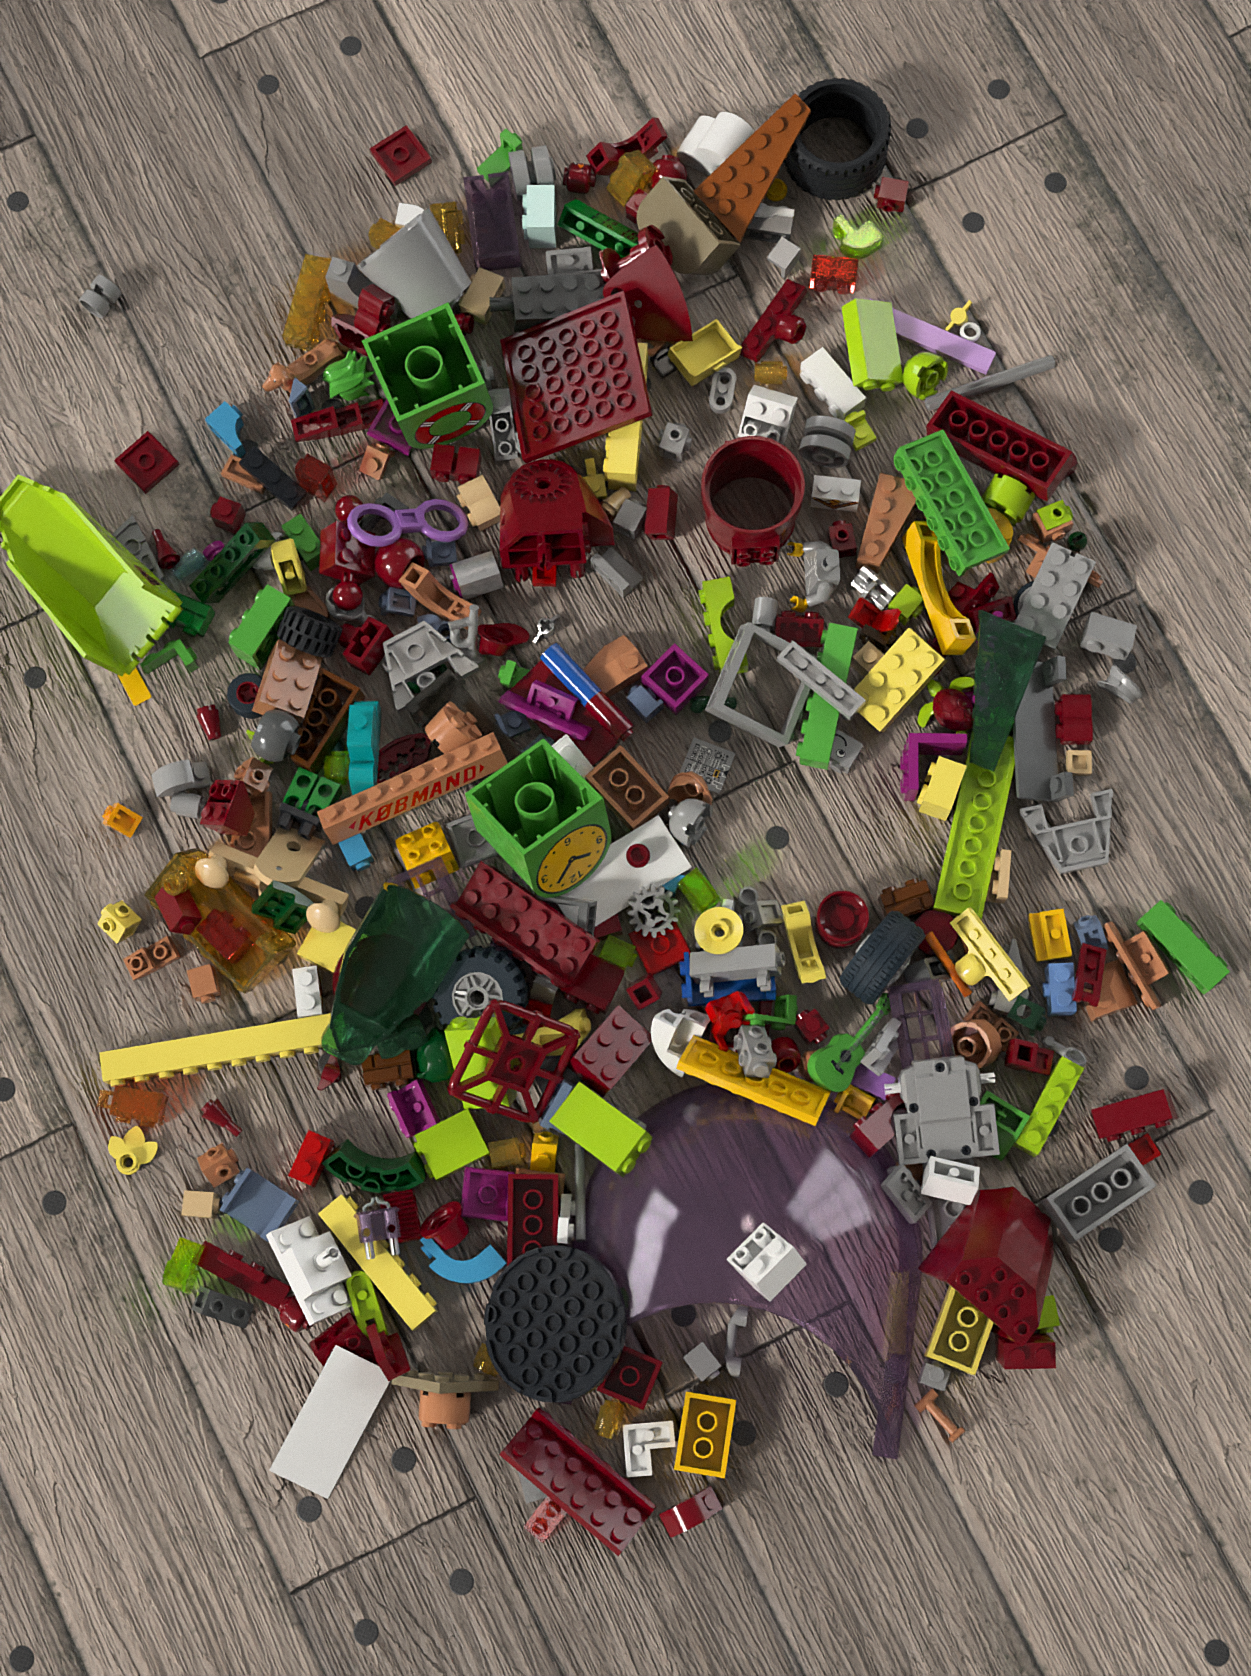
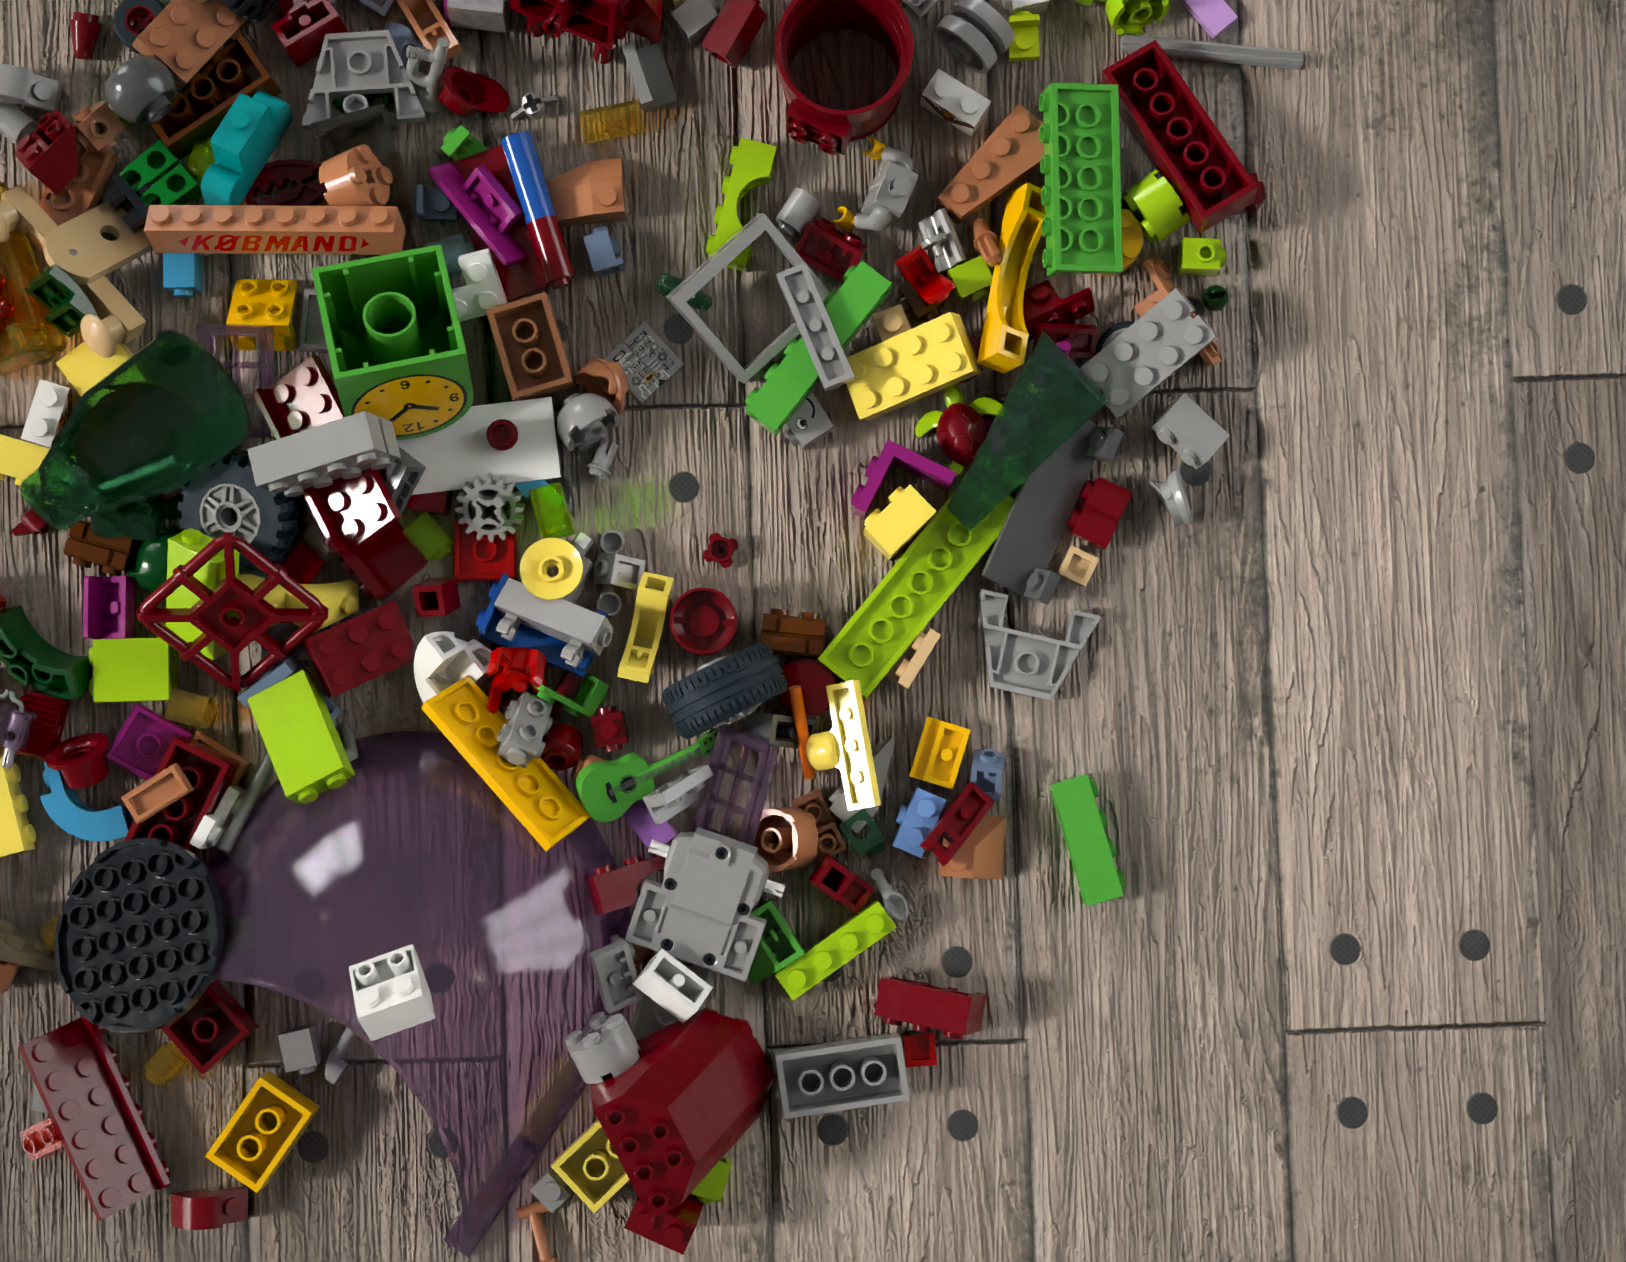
camera: 20 degrees right, 10 degrees up
(516, 1219) = (157, 793): none -> nougat tile
(530, 918) = (324, 454): none -> light grey piece
(544, 578) = (562, 46): red plate -> none
(544, 1152) = (235, 728): yellow bracket -> none
(606, 612) = (611, 121): none -> clear yellow plate
(640, 1439) = (191, 1101): white plate -> none
(675, 679) = (651, 241): magenta brick -> none
(712, 840) = (601, 462): none -> light grey pin
(830, 862) = (712, 553): none -> dark red plate
(845, 546) = (931, 173): dark red brick -> none
(854, 1102) = (617, 839): yellow bracket -> none
(903, 574) = (985, 241): none -> nougat axle
(924, 1246) = (603, 1047): none -> light grey brick
(1055, 534) = (1192, 277): nougat bracket -> none
(1142, 961) = (1029, 832): nougat bracket -> none

